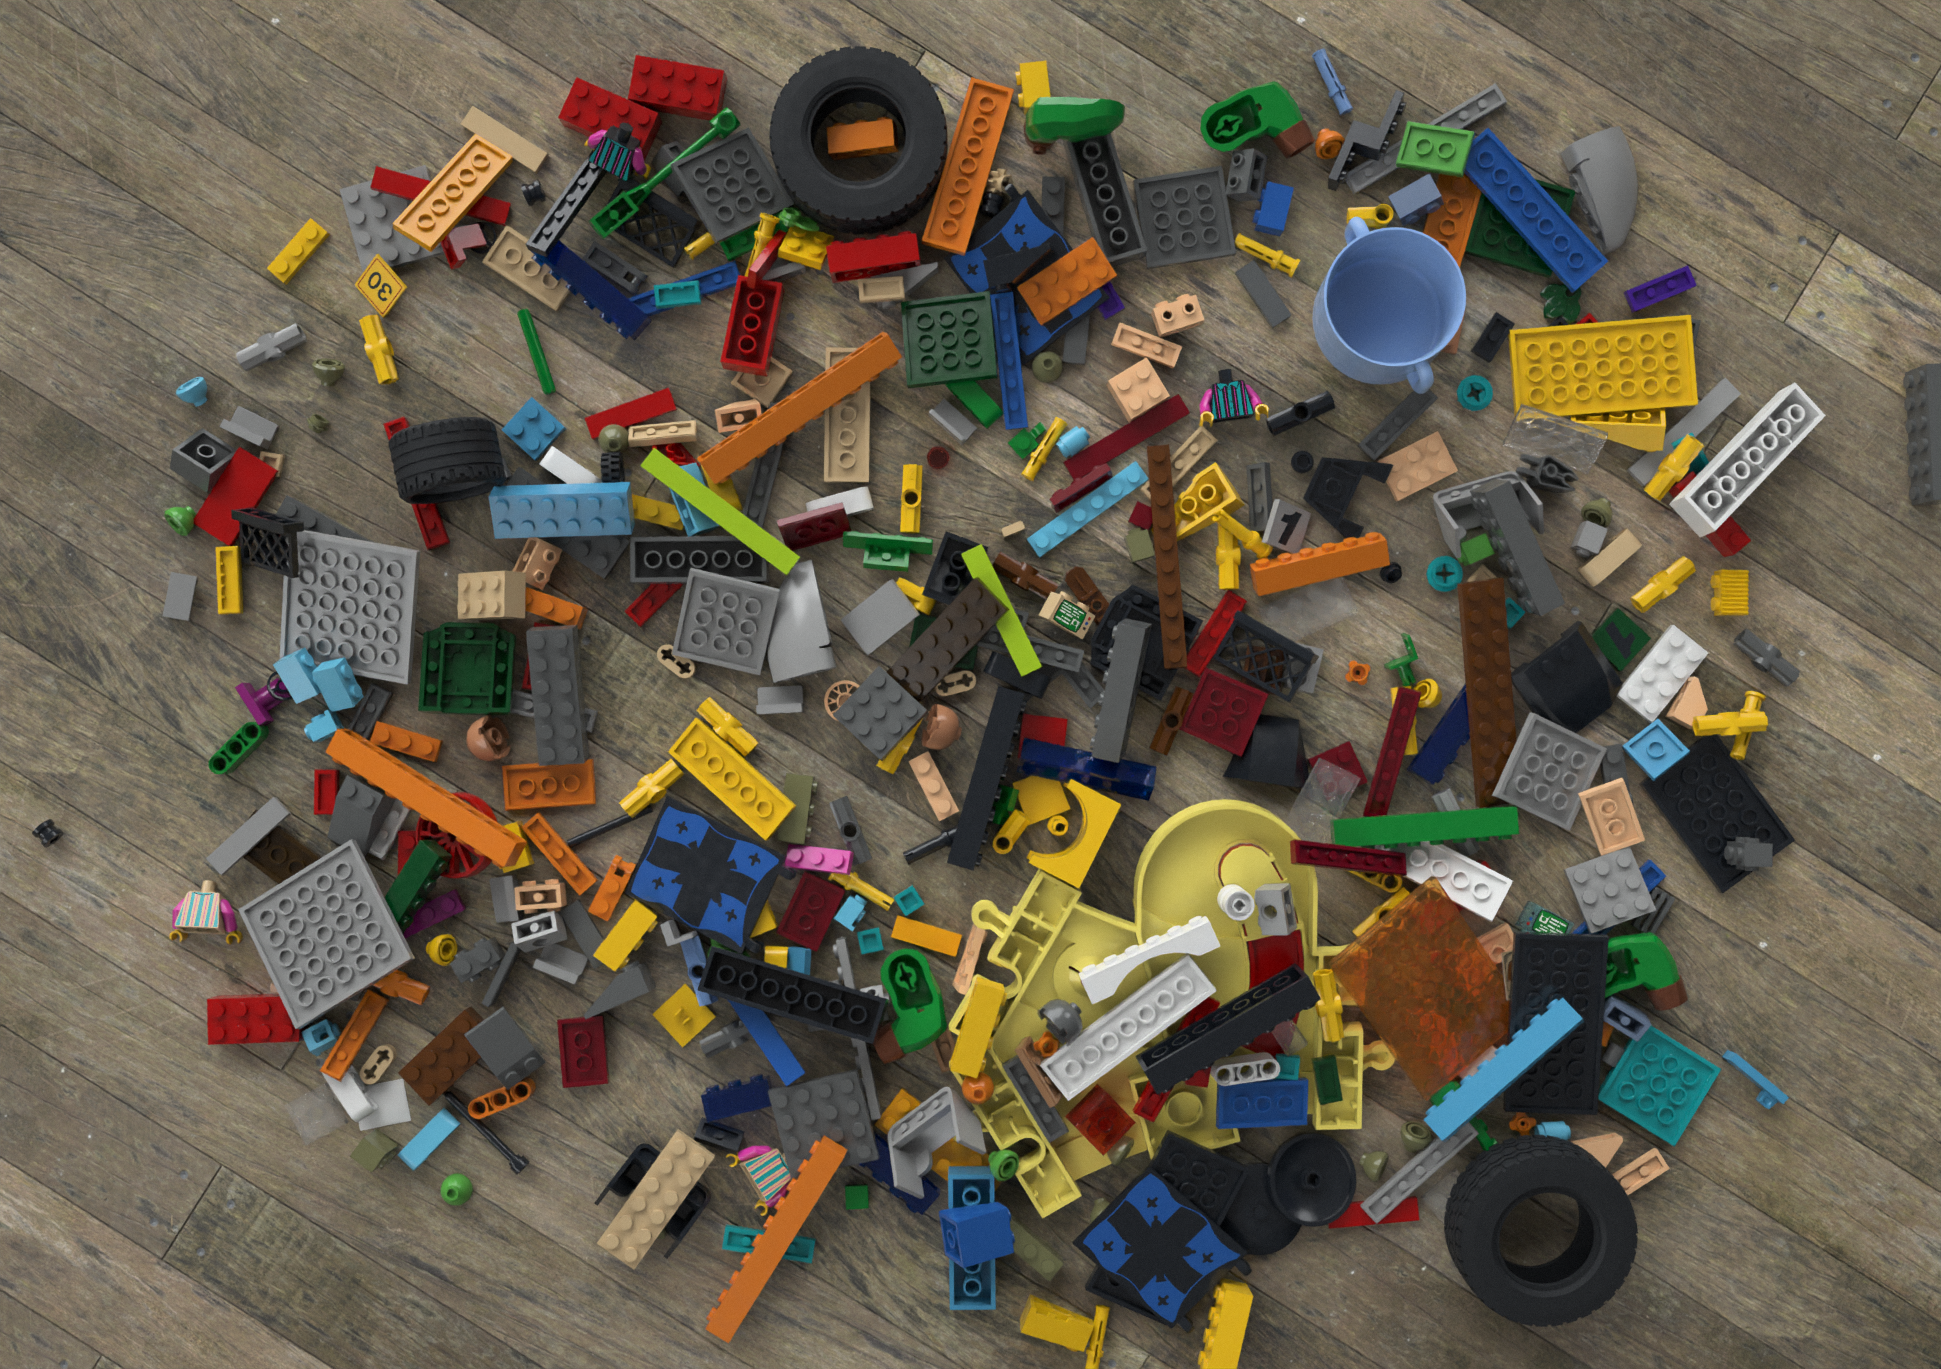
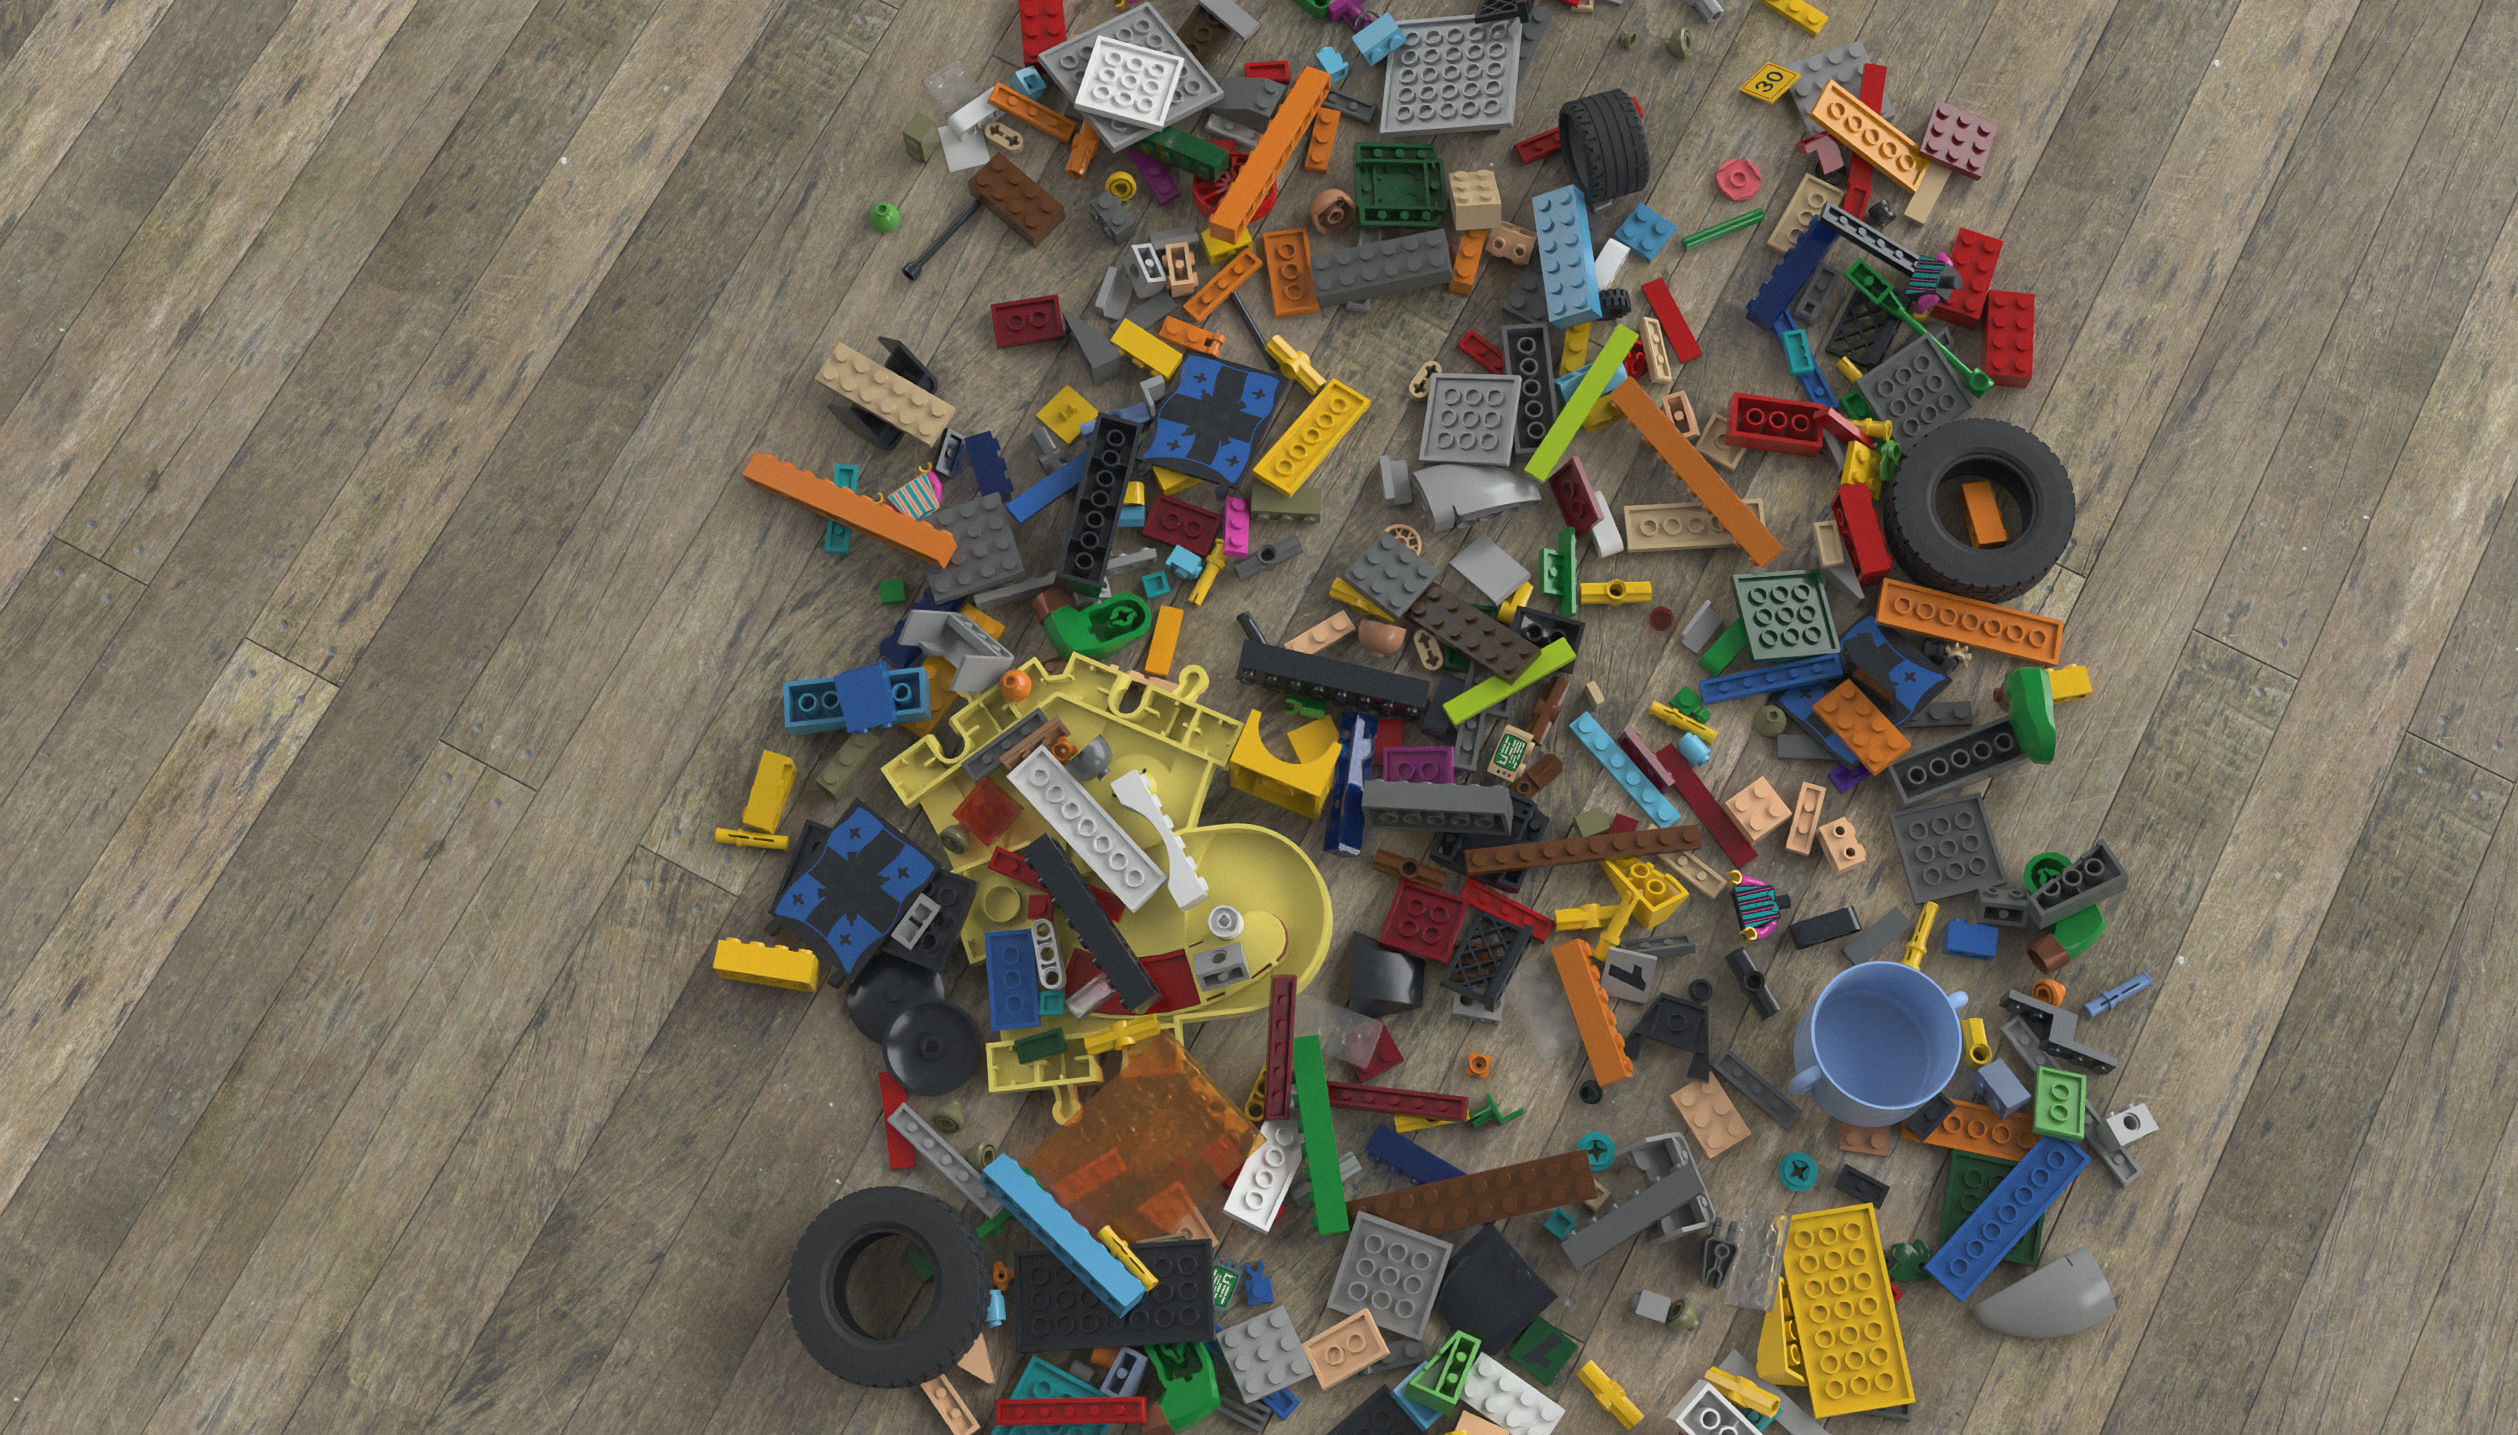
camera: 85 degrees right, 15 degrees down
(337, 684) = (1373, 71): medium azure brick -> none
(337, 937) = (1129, 83): none -> white plate
(379, 349) = (1706, 86): yellow piece -> none
(428, 1139) = (933, 187): medium azure beam -> none
(459, 107) = (1957, 140): none -> plate
(483, 330) = (1738, 180): none -> coral tile
(492, 1103) = (980, 259): orange beam -> none
(502, 975) = (1097, 241): dark grey tile -> none
(505, 1048) = (1028, 245): dark grey slope -> none
(520, 217) = (1856, 200): none -> red tile
(613, 439) = (1643, 305): olive brick -> none
(727, 726) = (1363, 432): yellow piece -> none
(762, 483) = (1615, 449): dark grey plate -> none
(909, 900) = (1199, 620): teal plate -> none
(977, 1027) = (1079, 675): yellow brick -> none
(1003, 1164) = (935, 722): bright green brick -> none
(1011, 830) = (1279, 714): yellow piece -> none
(1052, 825) = (1289, 752): yellow pin -> none
(1077, 704) = (1419, 764): none -> magenta tile
(1204, 1194) = (916, 921): none -> light grey brick
(1241, 95) = (2079, 886): none -> dark grey wedge
(1252, 340) = (1825, 928): none -> black beam
(1430, 695) = (1462, 1139): yellow cone -> none
(1457, 80) = (2138, 1123): none -> light grey brick
(1475, 549) = (1624, 1179): bright green brick -> none
(1505, 1027) = (1121, 1251): none -> yellow pin
(1547, 890) = (1259, 1288): none -> blue plate
(1609, 557) = (1633, 1332): tan beam -> none
(1643, 729) = (1444, 1376): none -> bright green wedge
(1655, 1068) = (1070, 1411): none -> red tile
(1660, 289) = (1940, 1371): dark purple plate -> none

